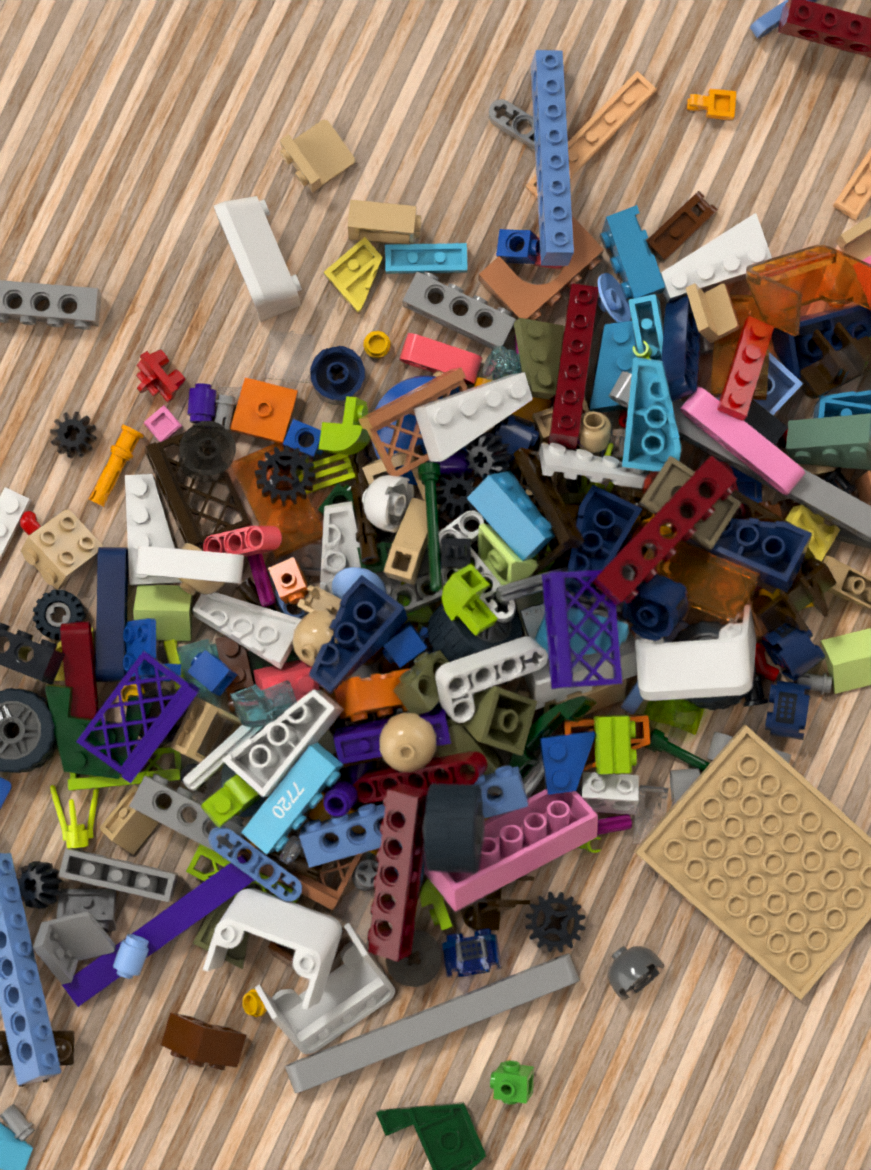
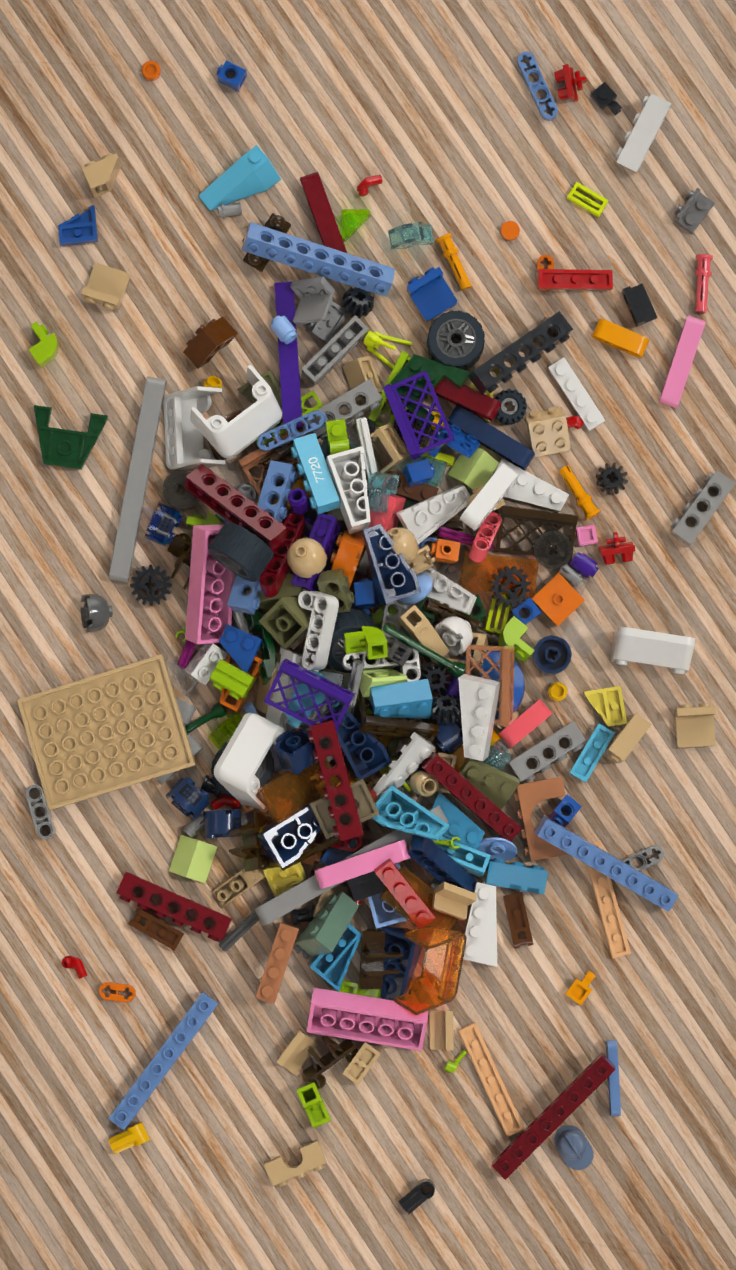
camera: 125 degrees right, 0 degrees up
(291, 850) = (287, 455): clear tile -> none
(512, 1082) = (75, 503): bright green brick -> none

